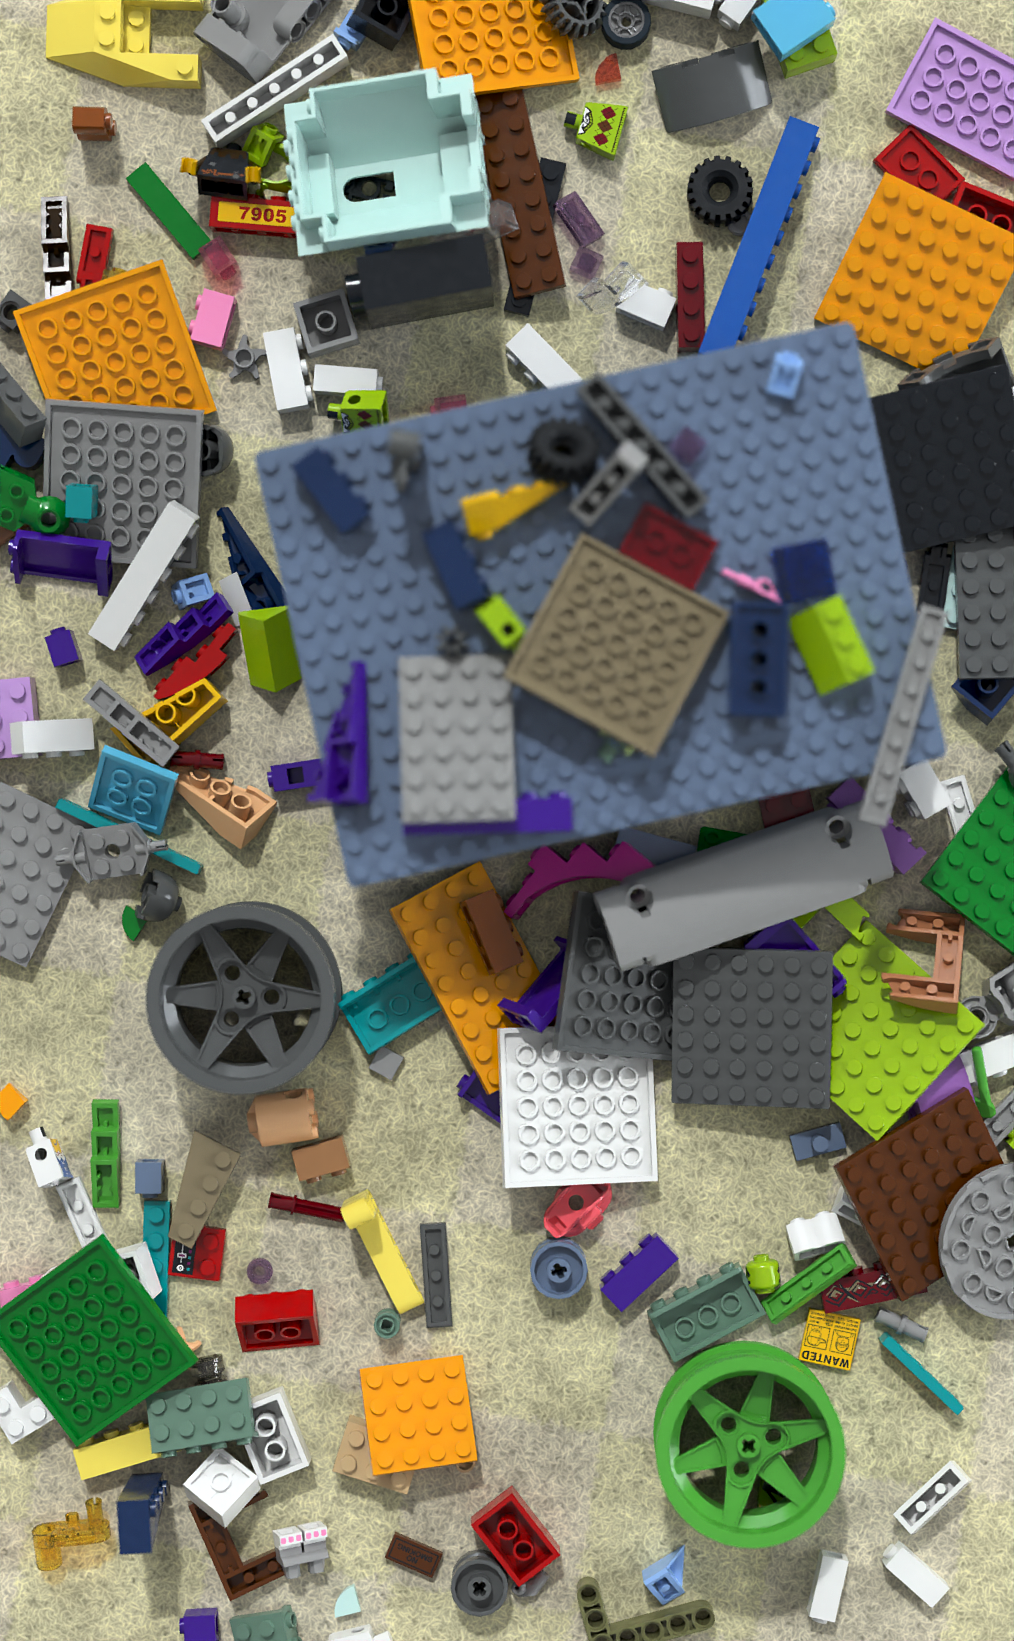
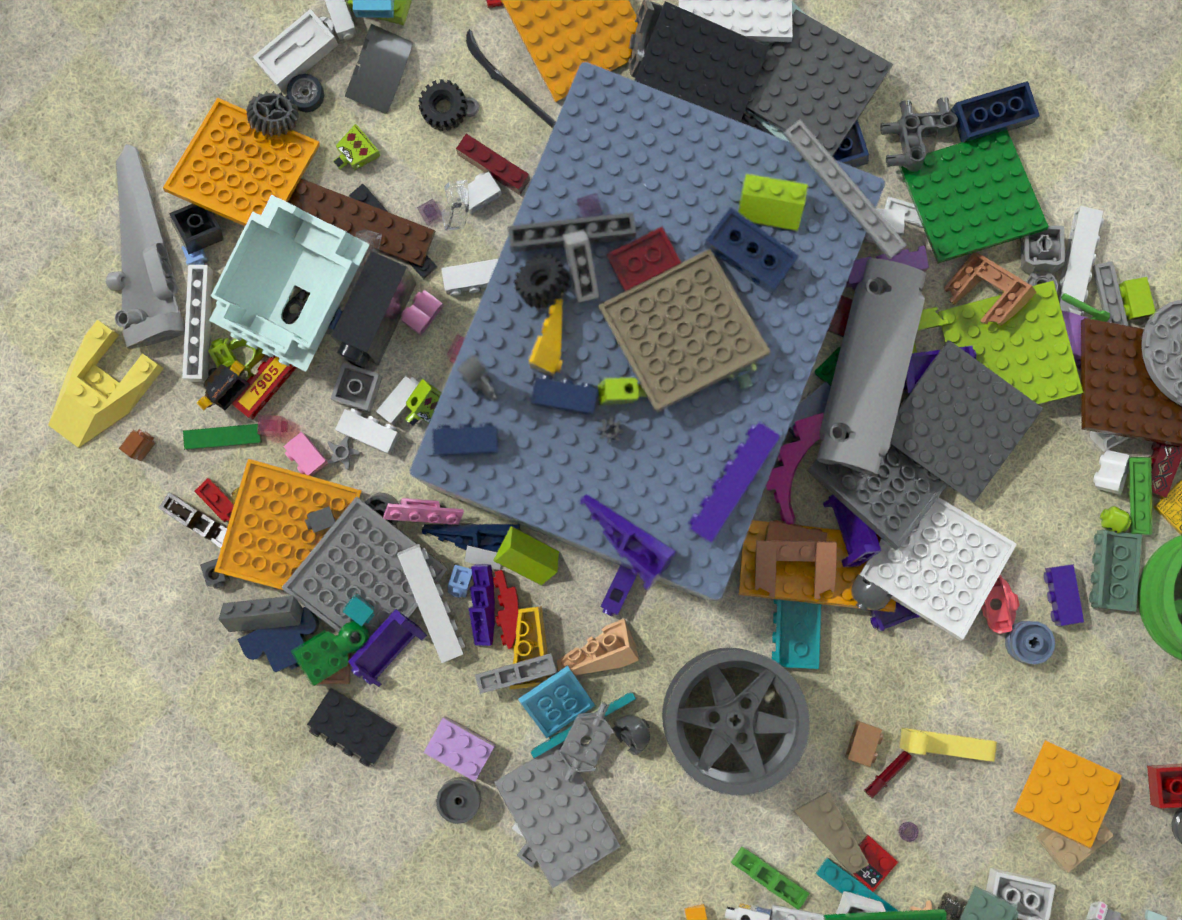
camera: 60 degrees left, 5 degrees down
(52, 737) = (490, 730): white brick -> none
(63, 647) = (438, 684): dark purple brick -> none
(131, 924) = (637, 761): green tile -> none
(149, 1177) = (804, 860): sand blue brick -> none
(150, 388) = (320, 519): none -> dark grey brick
(197, 760) = (565, 649): dark red pin -> none
(239, 495) = (422, 511): none -> bright pink bracket
(276, 1320) = (947, 842): red slope -> none
(283, 1117) = (824, 749): light nougat cylinder -> none
(386, 1062) = (830, 662): light grey tile -> none
(387, 1318) = (990, 773): sand green wheel -> none
(413, 1554) = (1151, 858): reddish brown tile -> none
(436, 1275) = (983, 722): dark grey tile -> none
(456, 739) = (674, 468): light grey plate -> none
(463, 336) = (422, 312): none -> bright pink brick
(483, 1052) = (869, 595): none -> dark grey cylinder
(494, 966) = (776, 550): none -> nougat wedge
(578, 219) = (401, 198): clear purple plate -> none
(608, 70) = (326, 122): clear red tile -> none
(748, 583) = (703, 224): bright pink hand -> none
(761, 235) = (487, 98): blue brick -> none
(785, 374) = (587, 119): light blue bracket -> none
(798, 226) = (496, 75): none -> black piece
(803, 571) = (714, 188): clear blue tile -> none
(817, 1141) = (1053, 431): sand blue tile -> none

